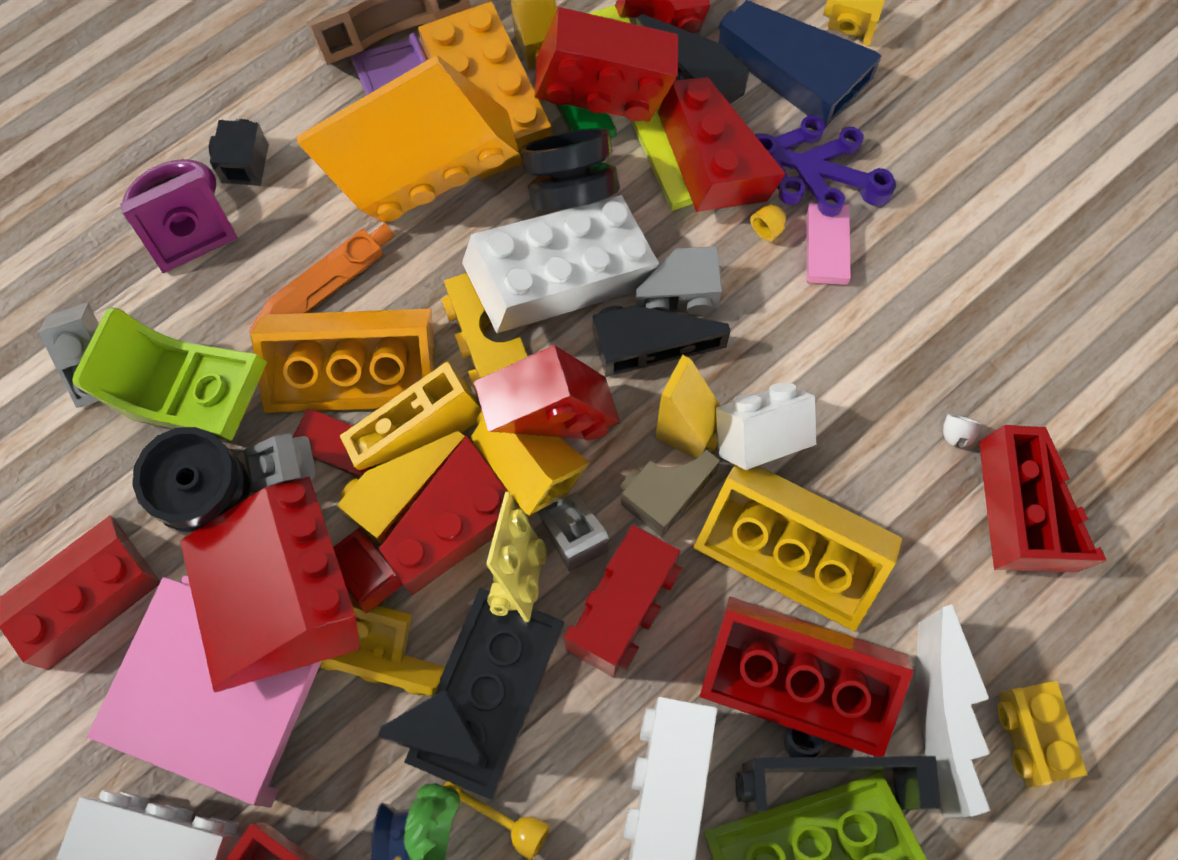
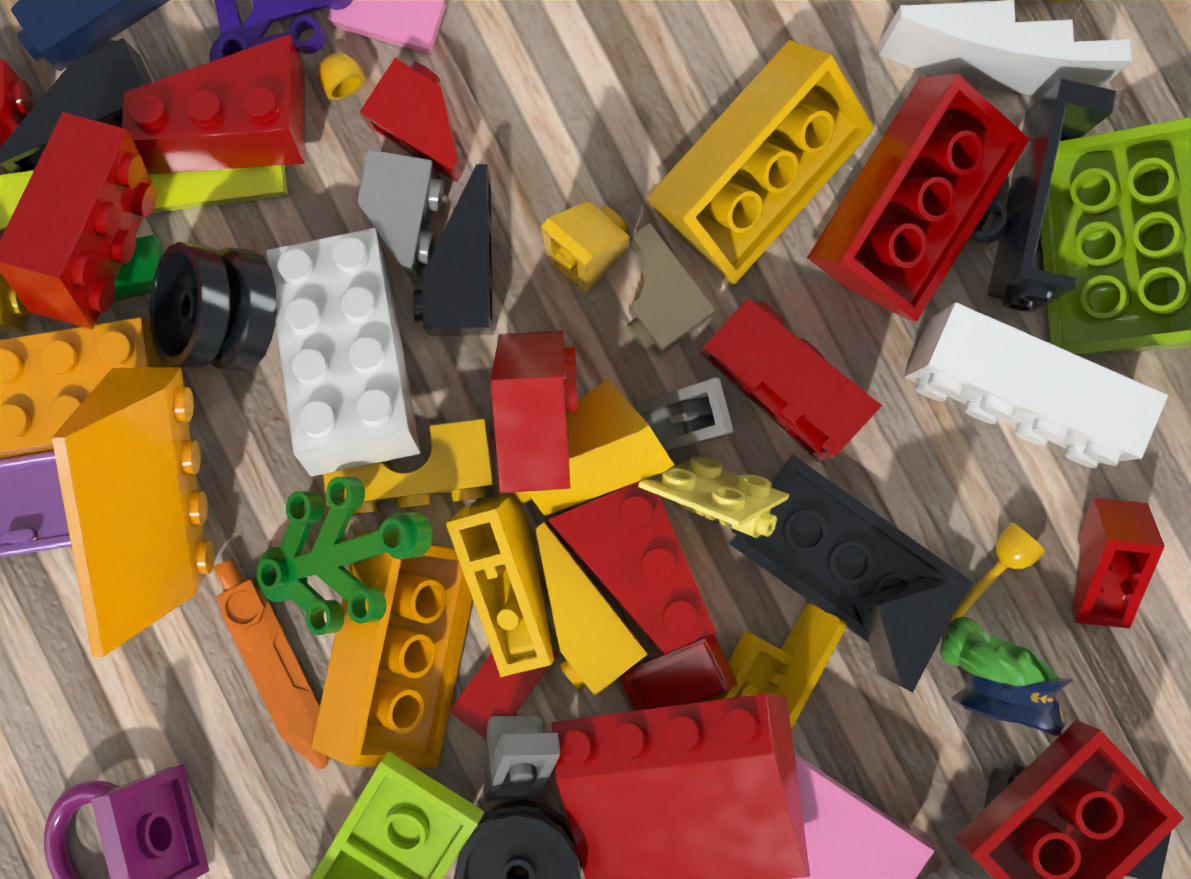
camera: 75 degrees left, 15 degrees up
(238, 152) = (56, 743): black brick -> none
(391, 271) = (285, 572): none -> green plant
(755, 278) = (414, 115): none -> red slope
(766, 425) = (621, 155): white brick -> none

